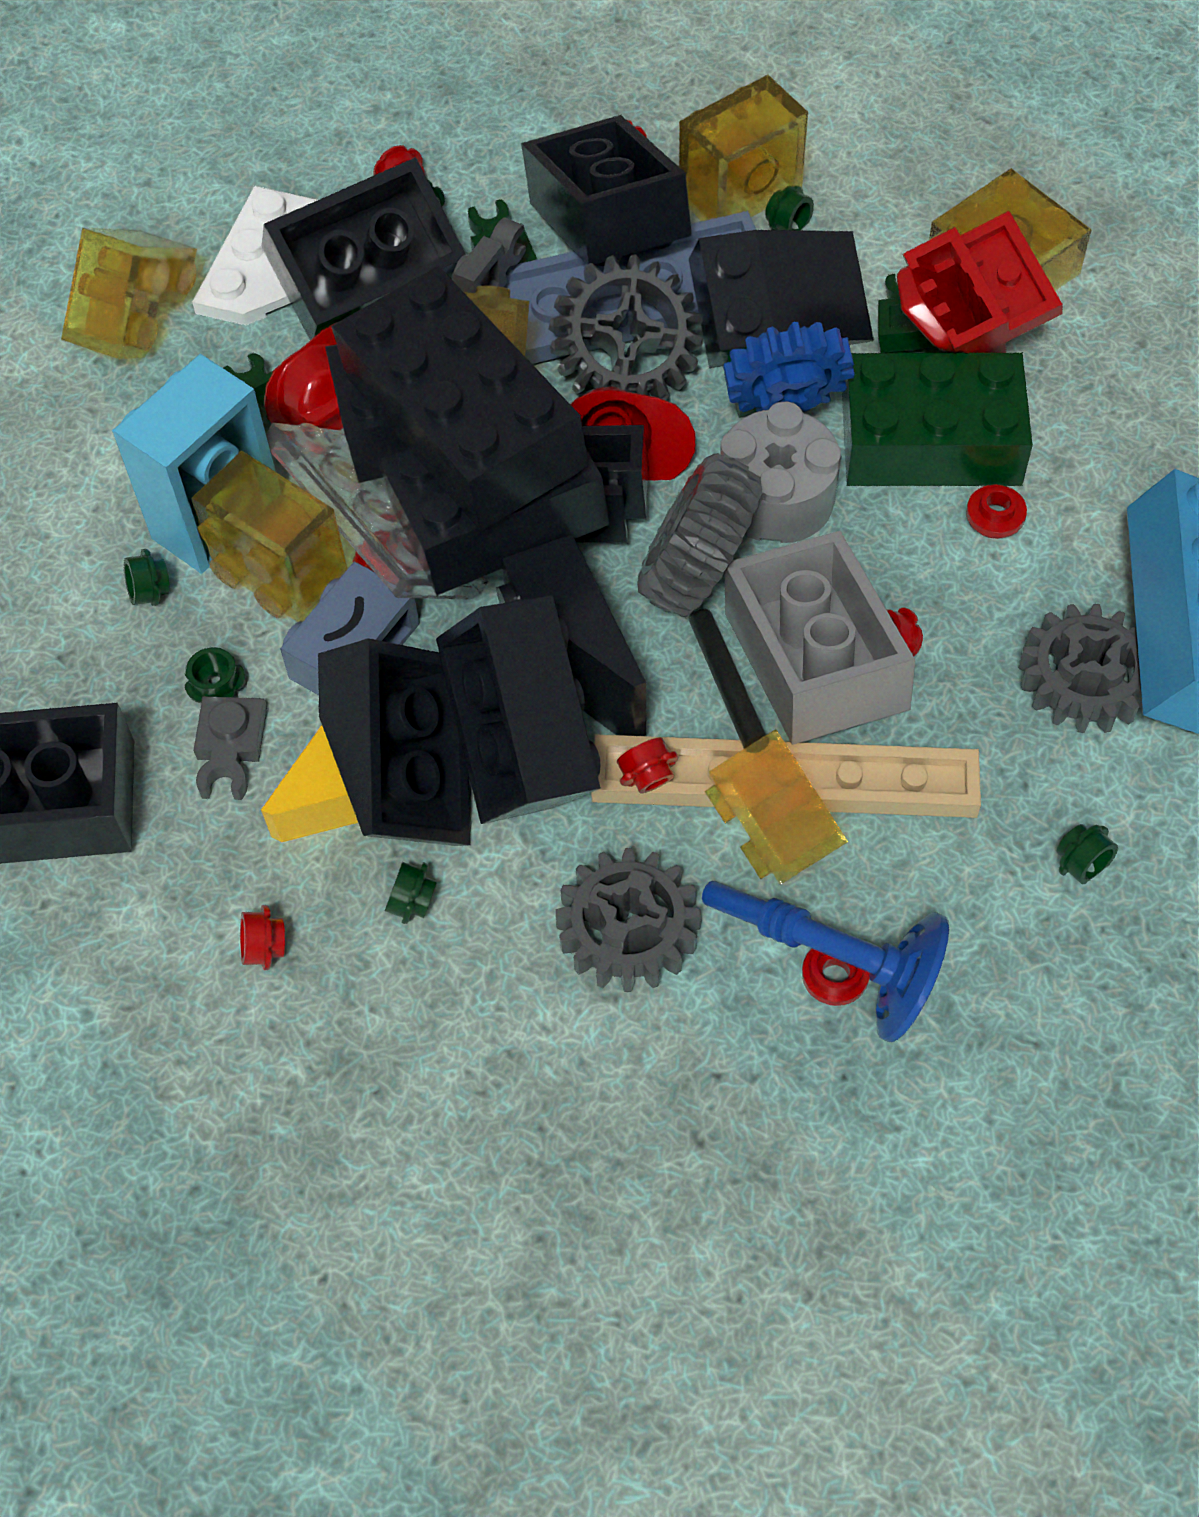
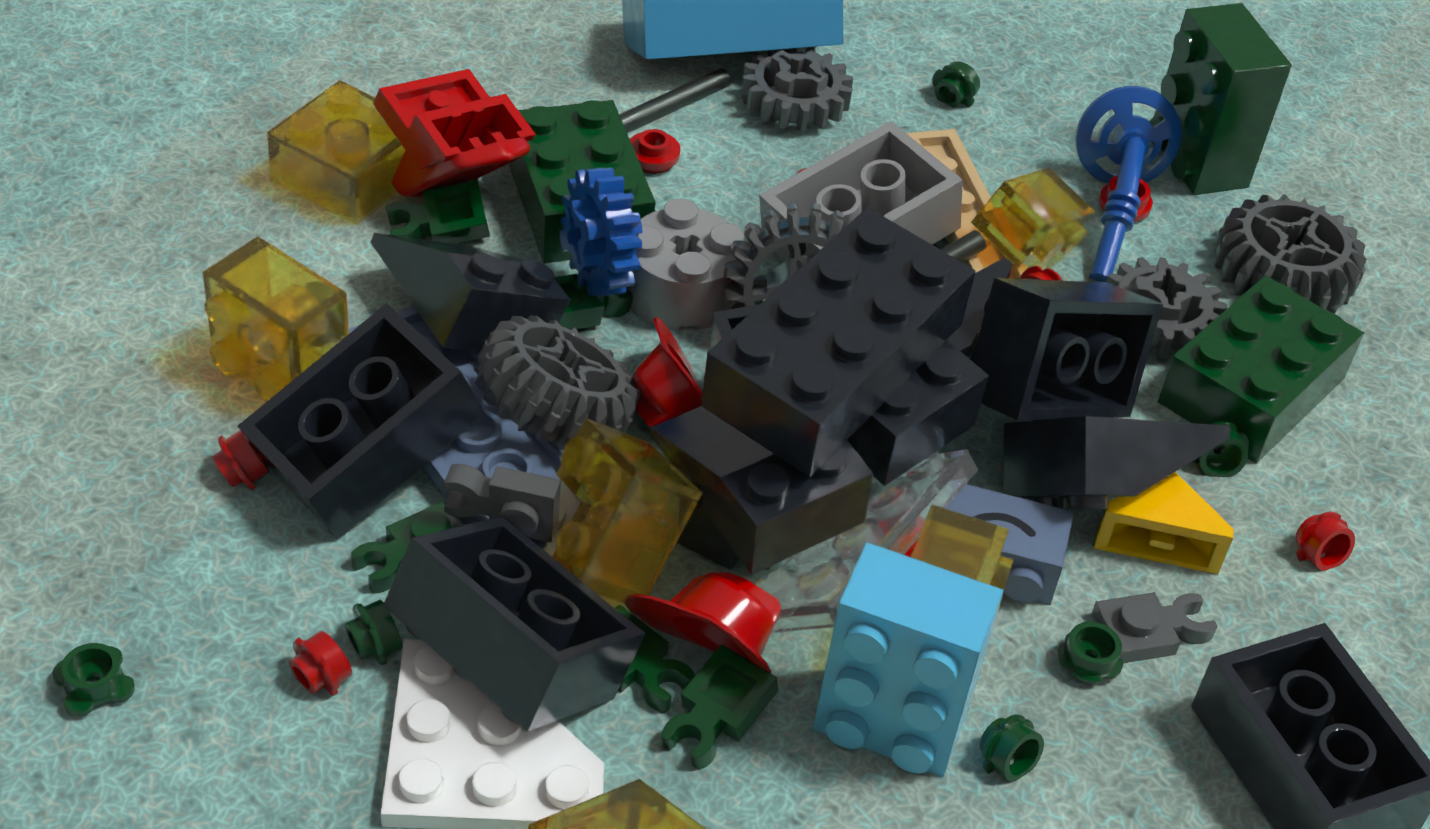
camera: 115 degrees left, 15 degrees down
(435, 56) = (88, 662): none -> dark green plate
(500, 973) = (1261, 365): none -> dark green brick
(724, 1073) = (1293, 247): none -> dark grey gear
(933, 1073) = (1226, 93): none -> dark green brick
(1086, 545) = (675, 99): none -> pearl dark grey bar

